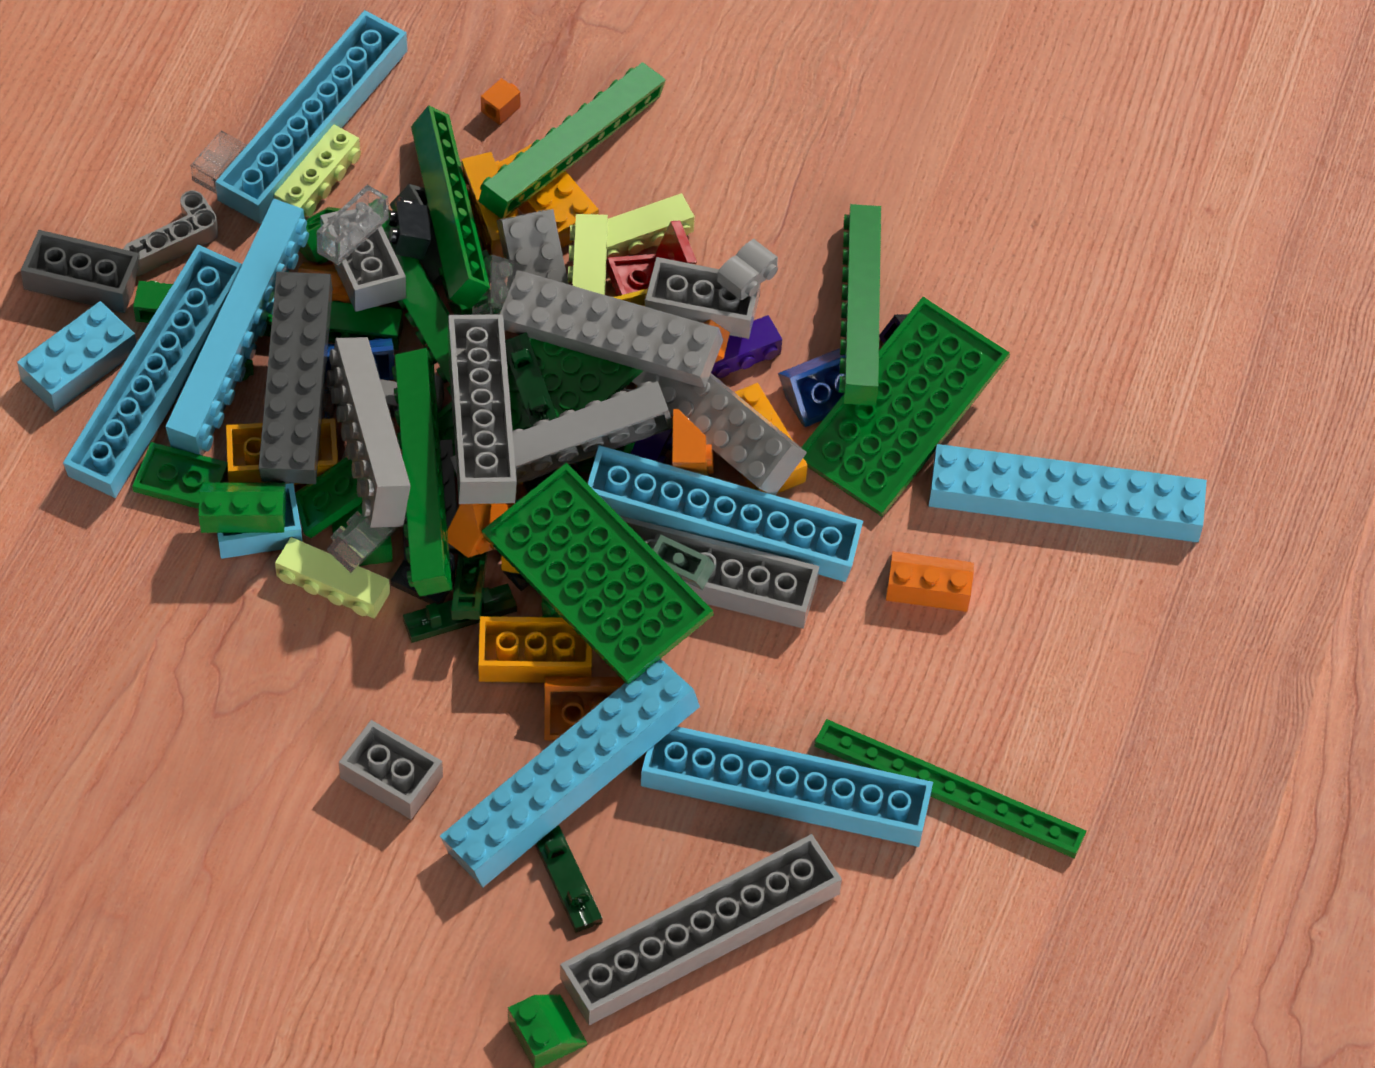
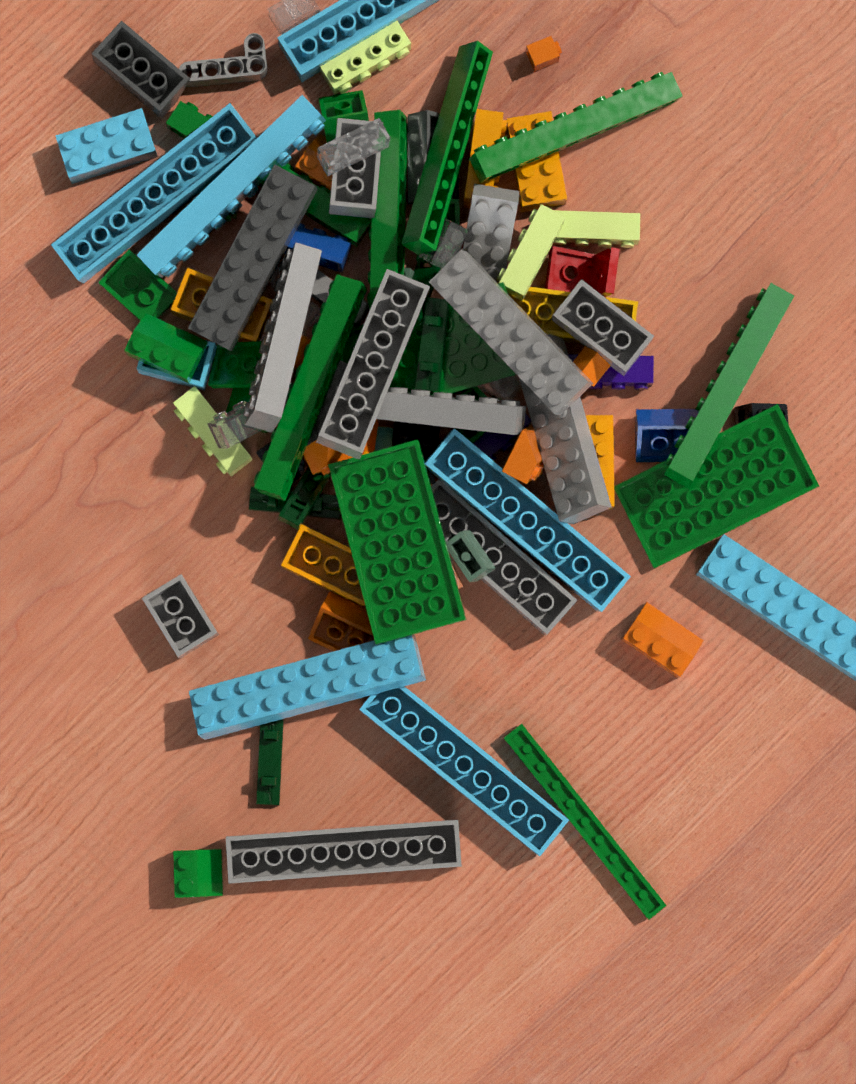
camera: 25 degrees right, 25 degrees up
(409, 228) = (405, 155): black brick -> none
(748, 269) = (644, 328): light grey brick -> none

